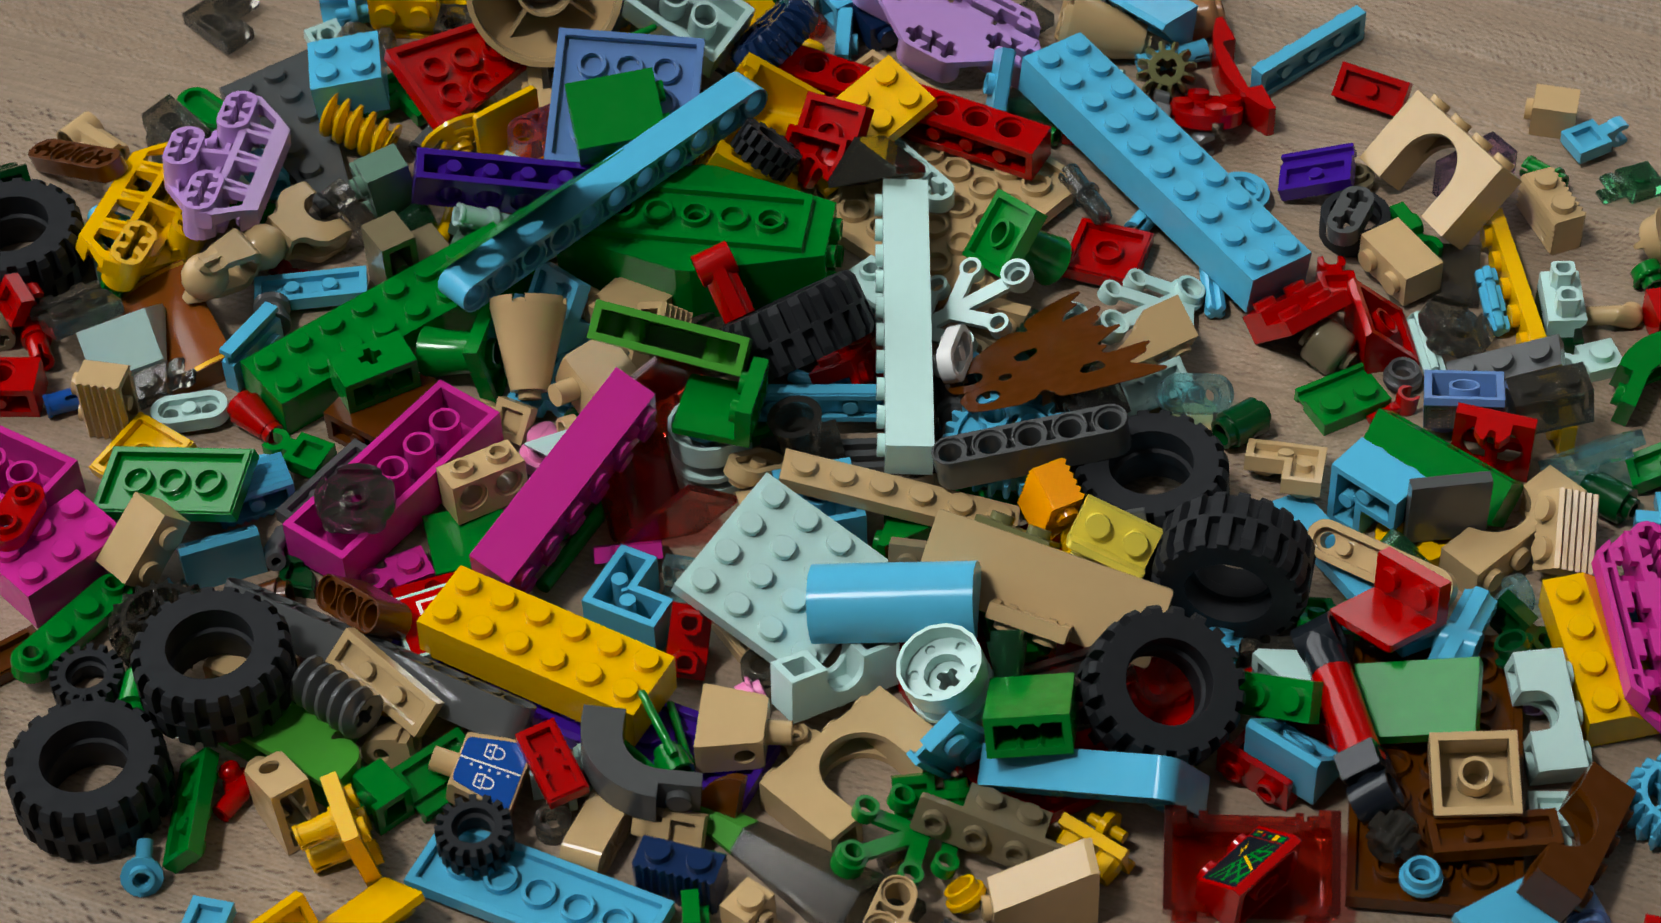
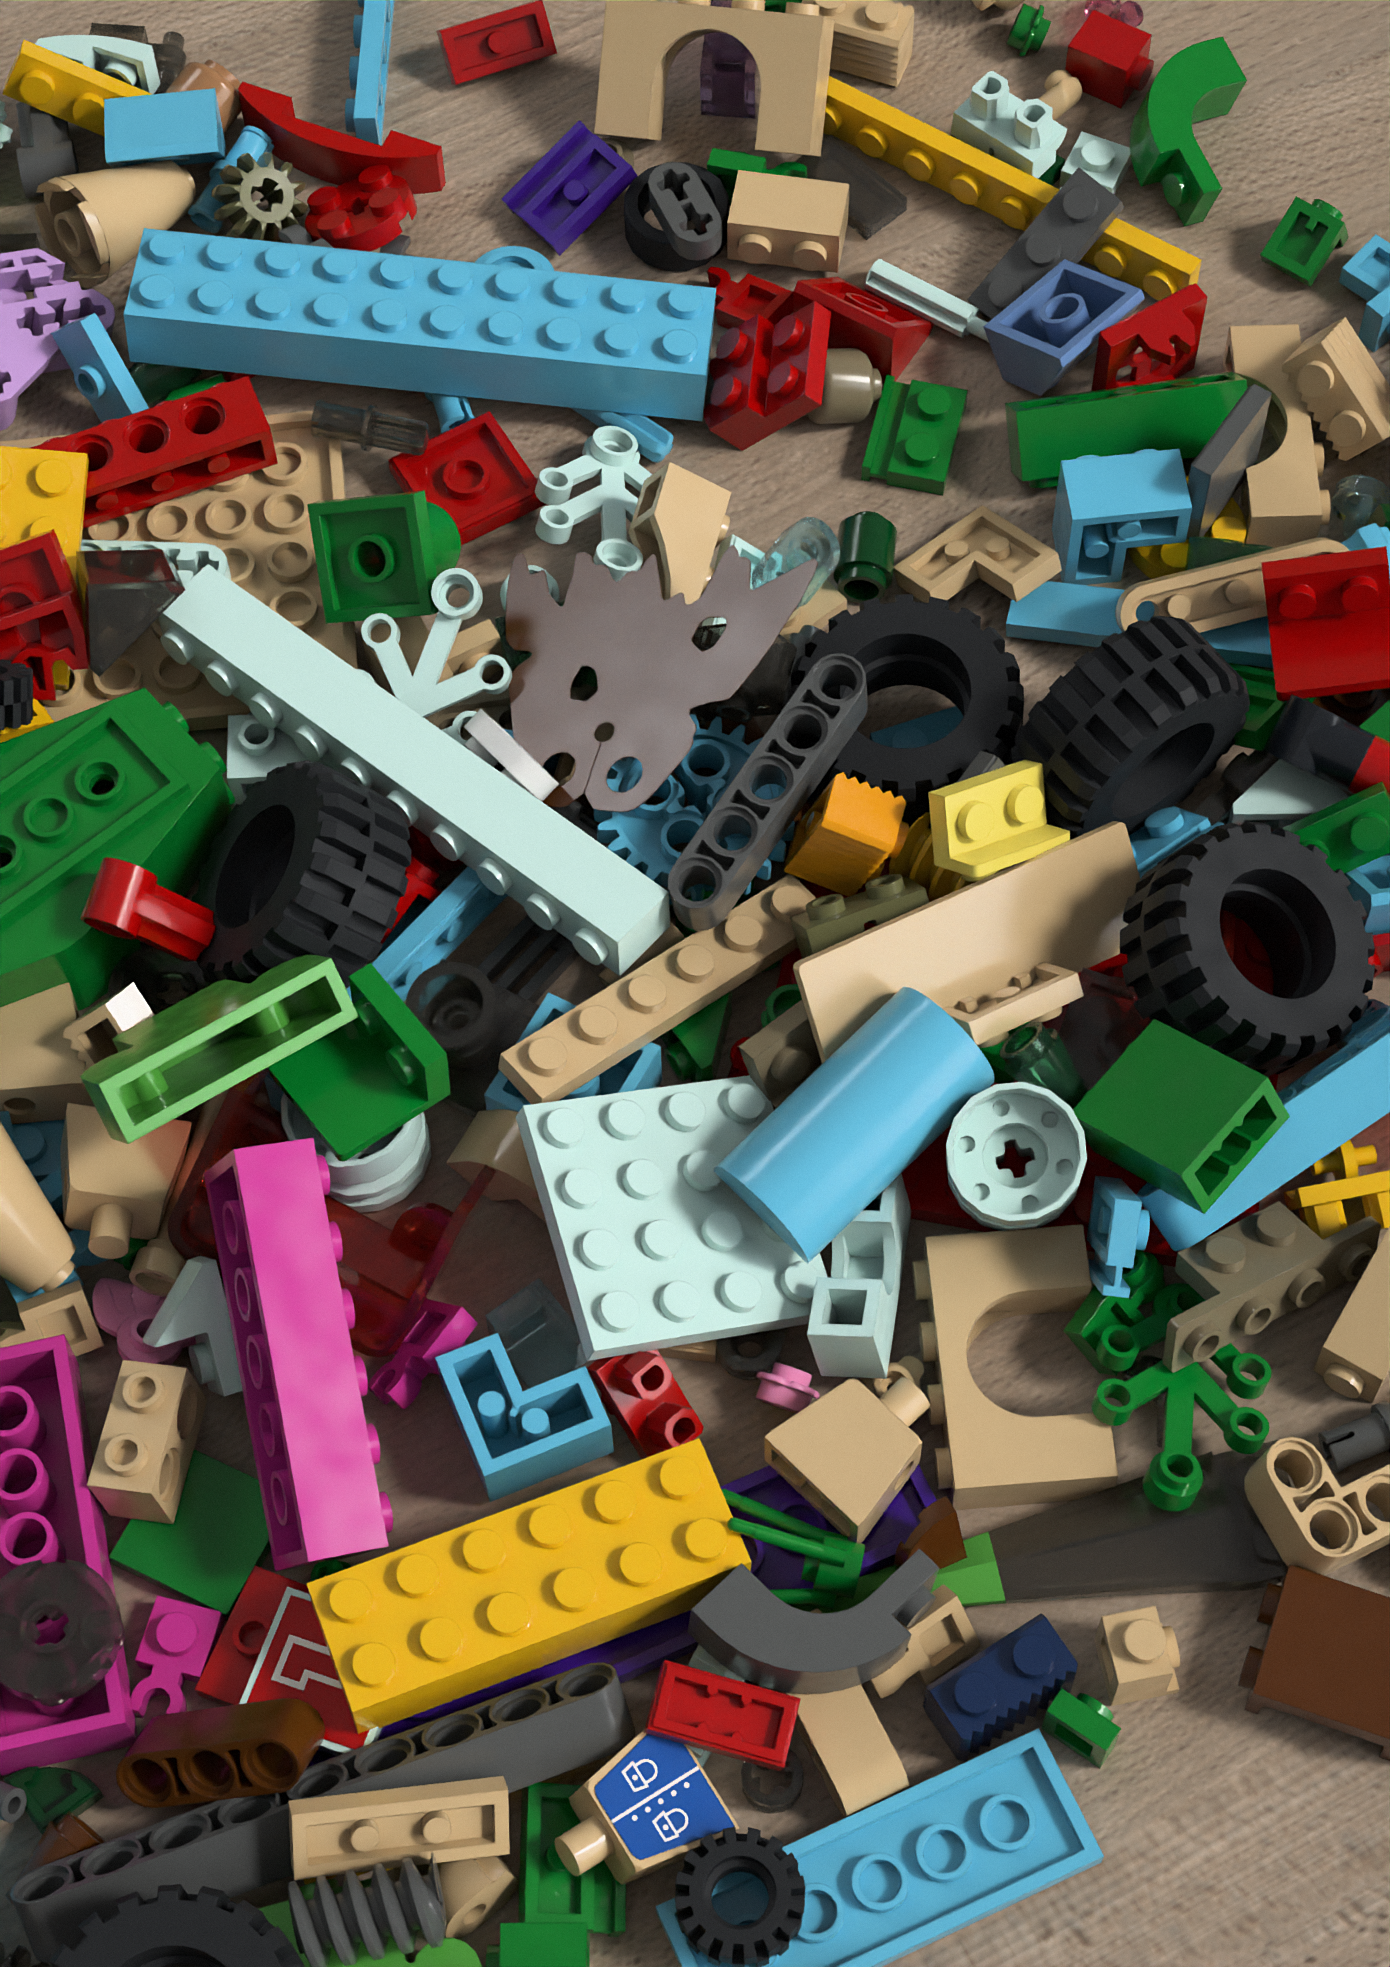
camera: 50 degrees left, 15 degrees up
(749, 466) = (461, 1119): tan plate -> none
(964, 894) = (1287, 1382): yellow plate -> none
(1402, 372) = (942, 342): flat silver plate -> none
(1402, 405) = (979, 391): red hand -> none
(1453, 327) = (935, 253): clear smoke plate -> none
(1492, 299) = (924, 188): medium azure axle -> none
(1554, 396) = (1165, 242): clear smoke brick -> none
(1590, 455) = (1250, 273): clear light blue plate -> none
(1616, 499) = (1309, 305): dark green brick -> none

